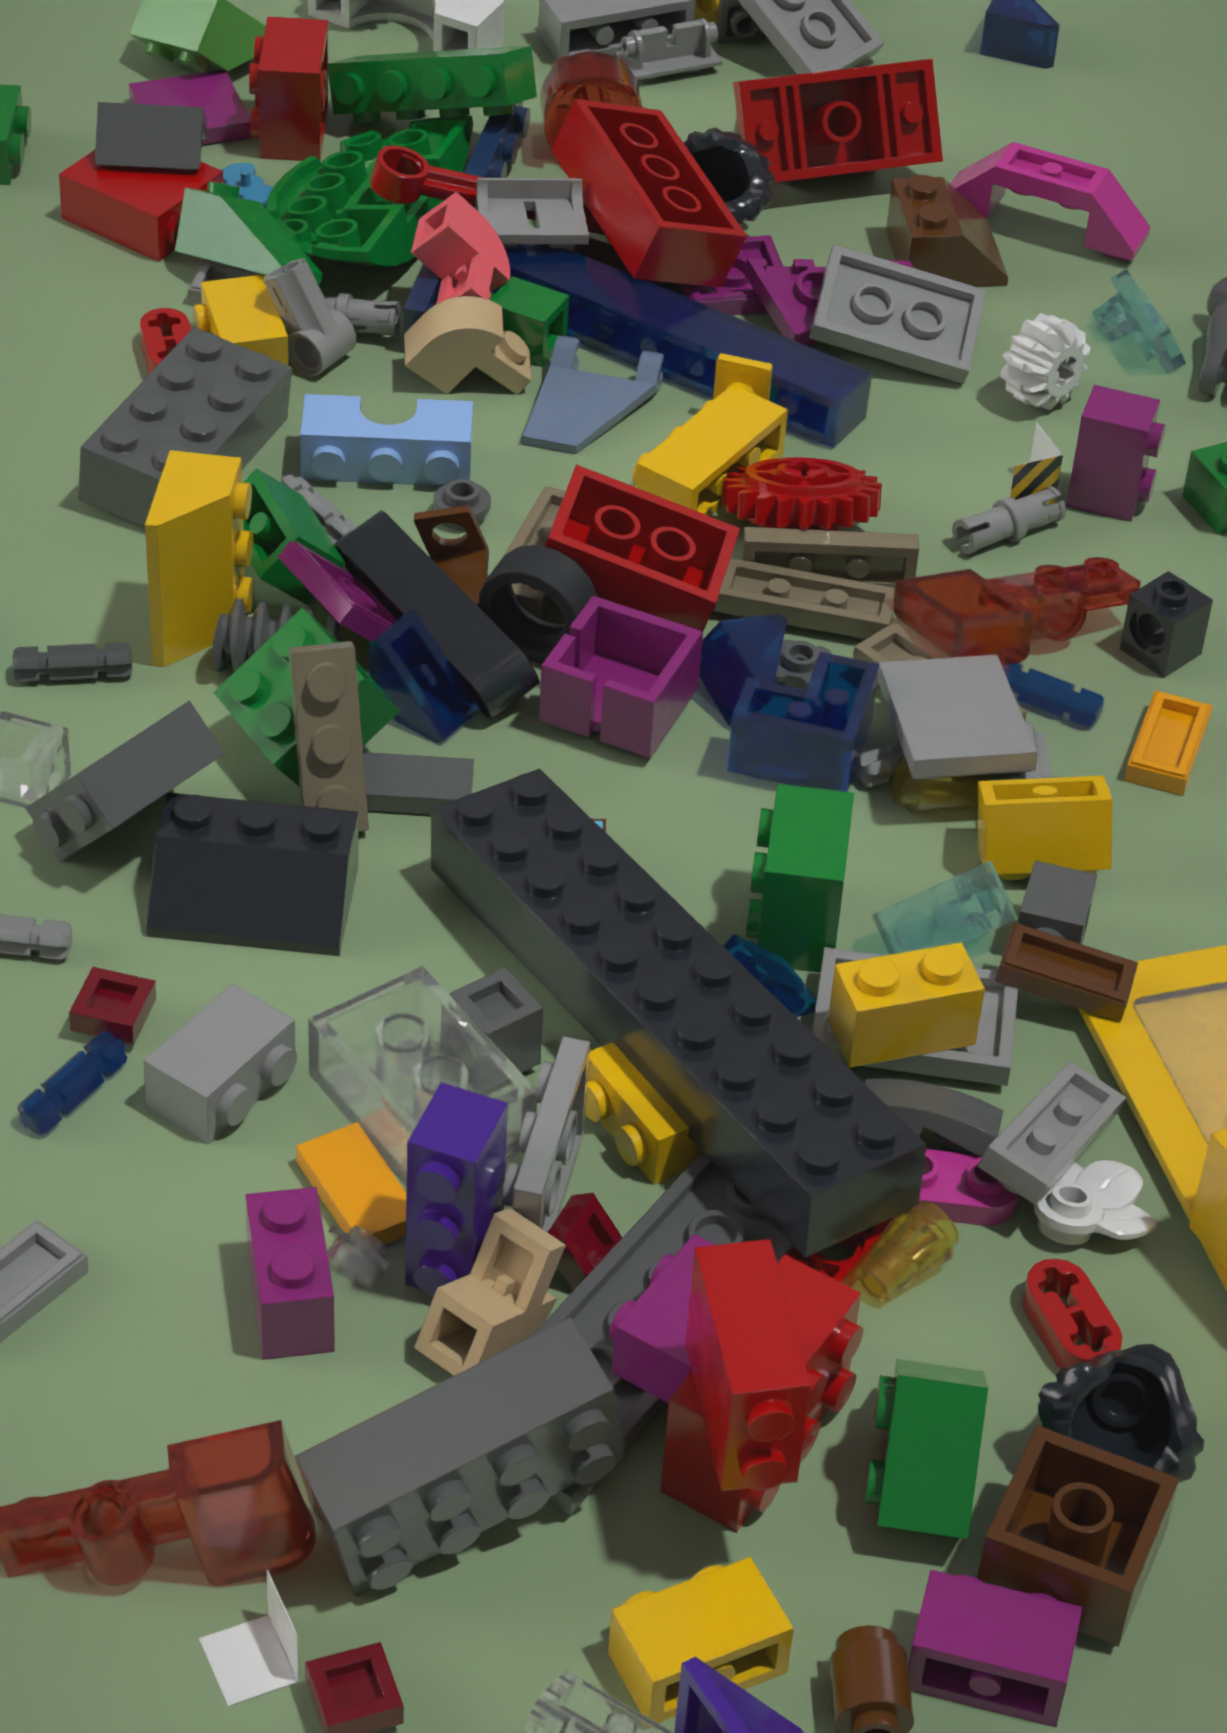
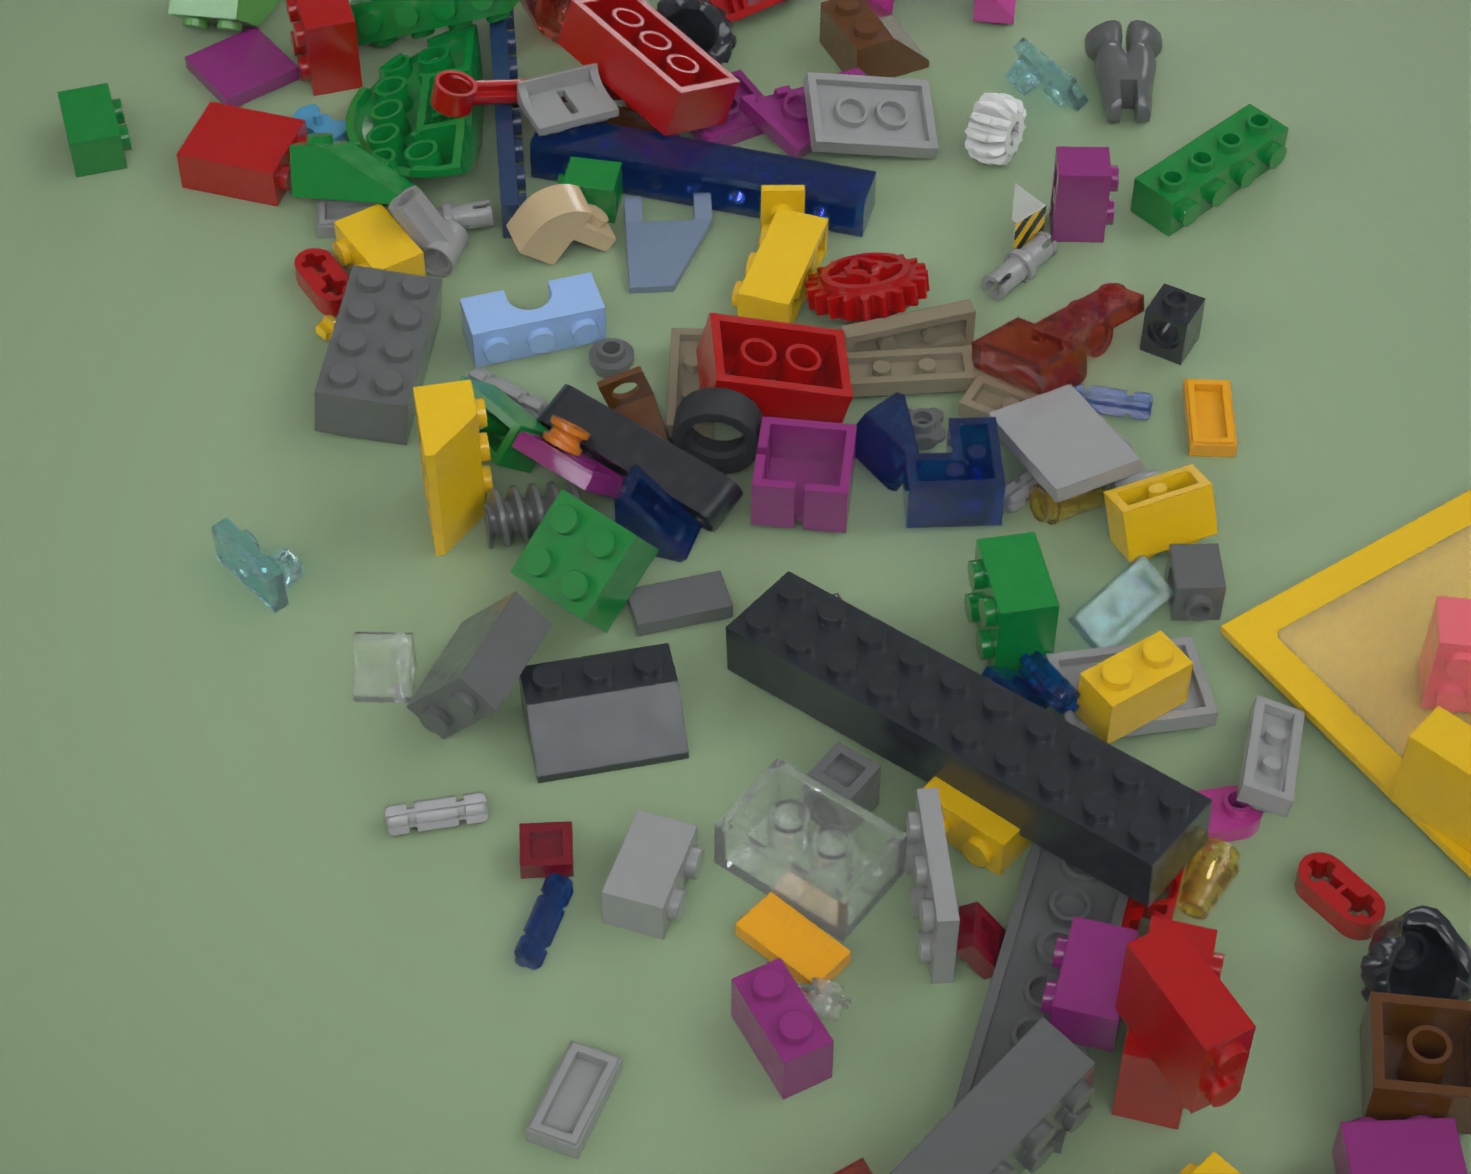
camera: 15 degrees left, 5 degrees up
(72, 662) = (377, 571): dark grey axle -> none
(150, 136) = (239, 106): dark grey panel -> none
(328, 728) = (620, 583): dark tan plate -> none
(351, 563) = (566, 435): none -> orange bush
(452, 1184) = (889, 934): dark purple brick -> none
(461, 250) = (529, 148): coral brick -> none
(498, 1301) = (941, 1007): tan brick -> none
(807, 976) = (1049, 682): none -> clear blue axle
(931, 1448) = (1300, 1023): green brick -> none
(953, 1116) = (1194, 762): dark grey slope -> none
(1066, 972) = (1225, 625): reddish brown tile -> none
(1094, 1201) = (1320, 802): white plate -> none

